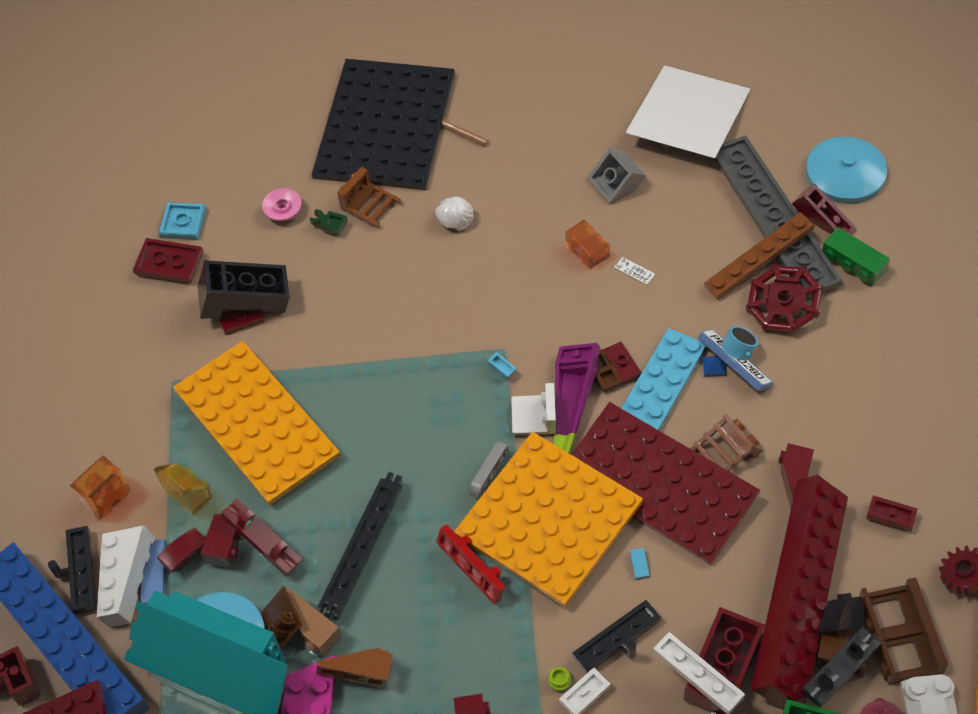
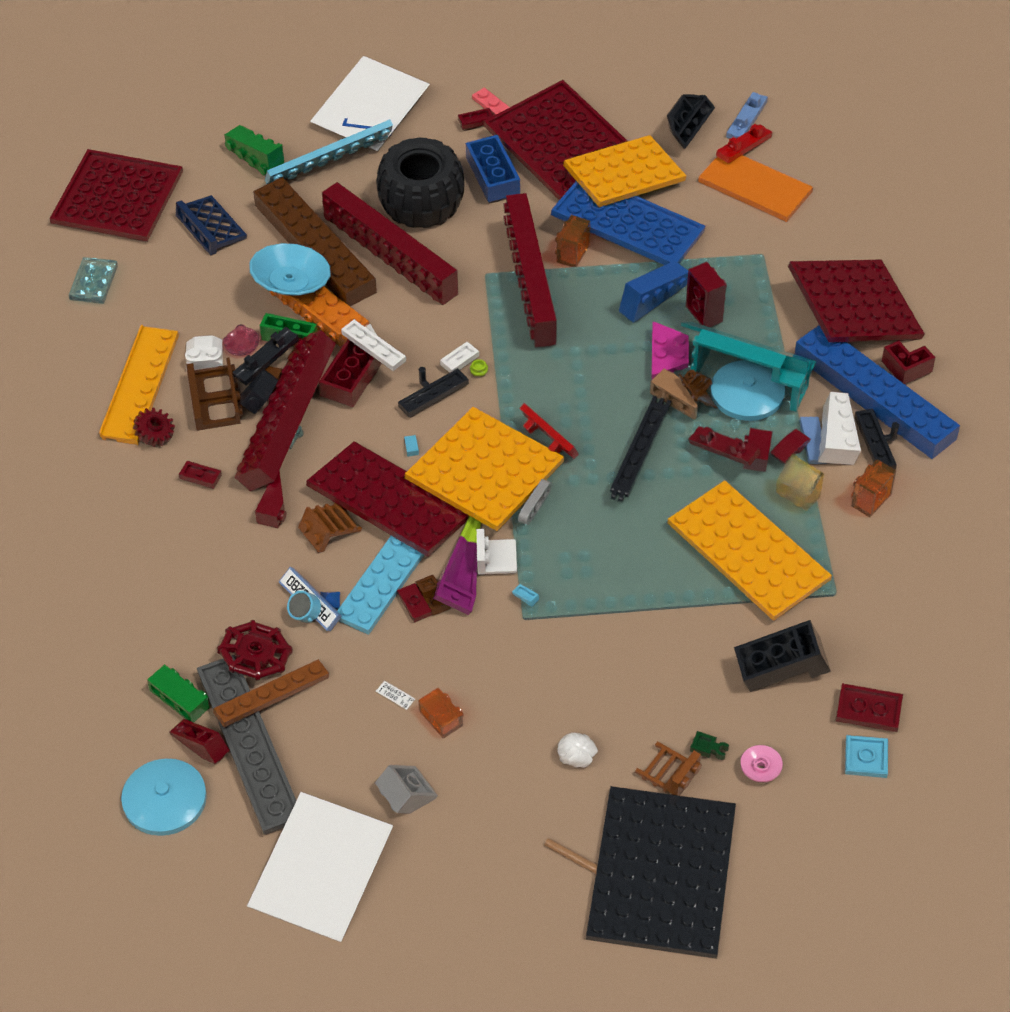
camera: 175 degrees right, 5 degrees down
(362, 667) = (629, 361): dark orange slope -> none

